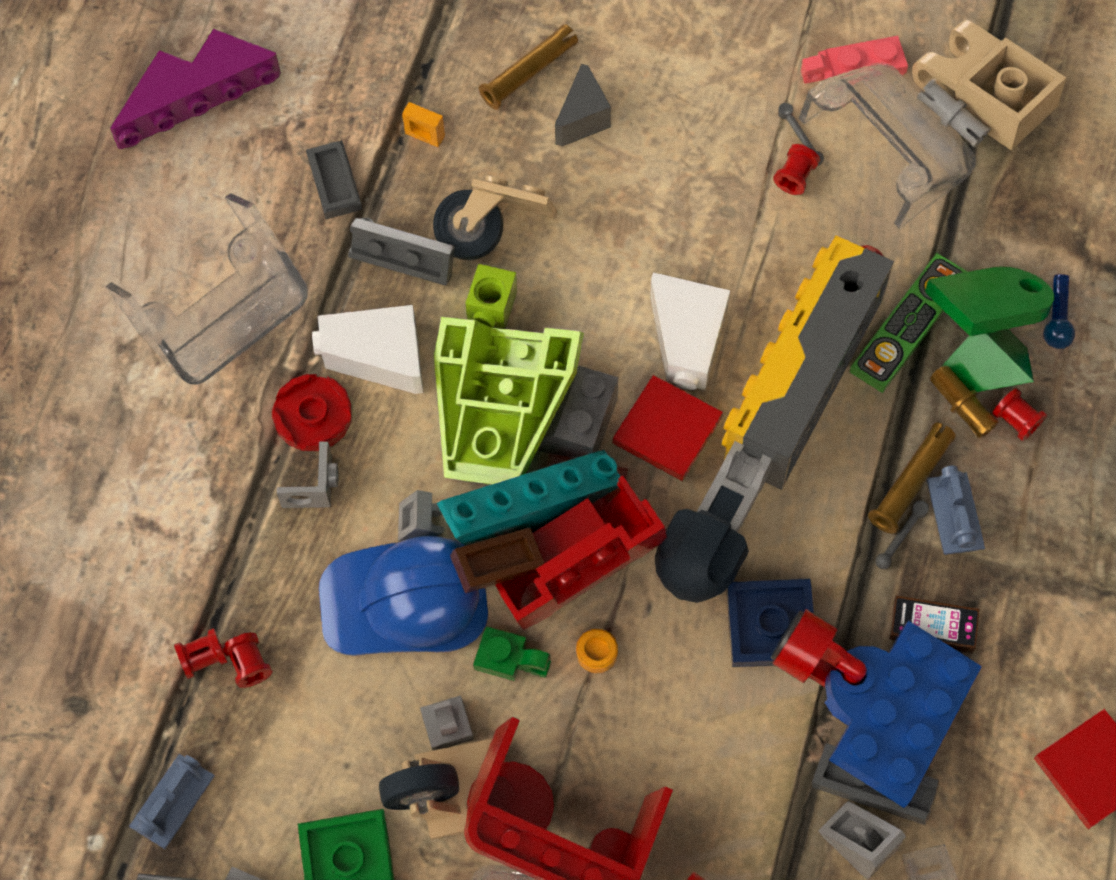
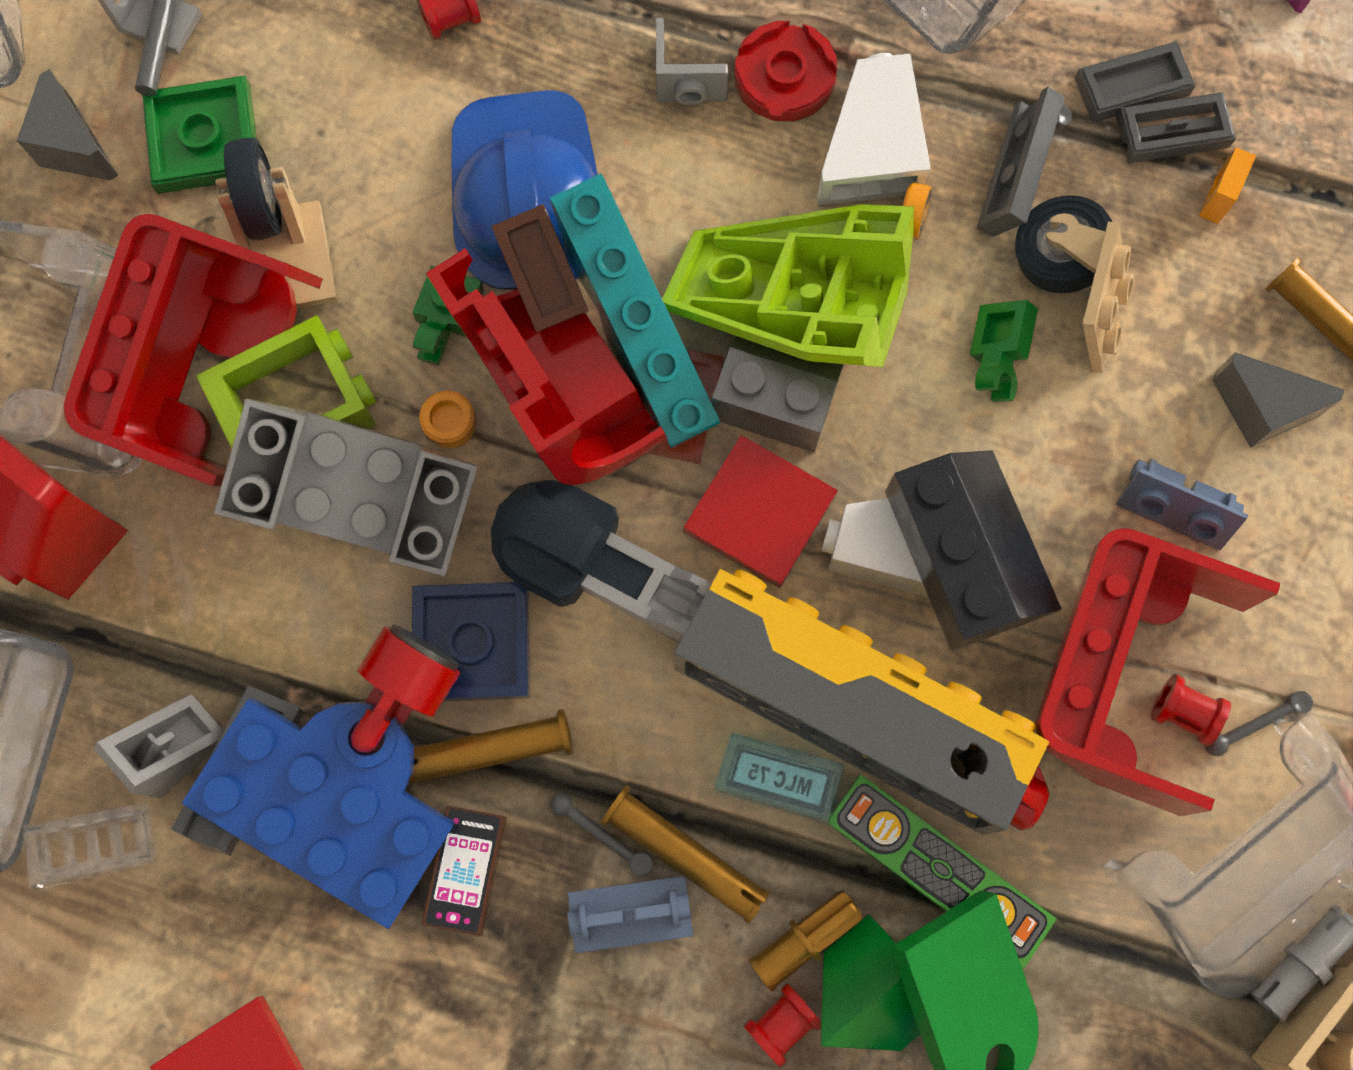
camera: 90 degrees right, 10 degrees up
(375, 181) = (1143, 151): none -> dark grey tile
(416, 516) = (635, 193): light grey tile -> none
(430, 318) = (918, 196): none -> light orange tile
(446, 723) = (361, 240): light grey tile -> none
(495, 284) = (968, 262): lime brick -> none
(537, 269) = (999, 339): none -> green plate
(605, 803) = (225, 378): none -> lime window
(661, 155) = (1197, 513): none -> sand blue hinge
(664, 692) = (345, 484): none -> light grey slope
(703, 284) = (970, 546): none -> black slope
(722, 194) = (1127, 582): none -> red windscreen
(845, 597) = (492, 748): none -> pearl gold pin
(856, 416) = (780, 777): none -> clear light blue tile

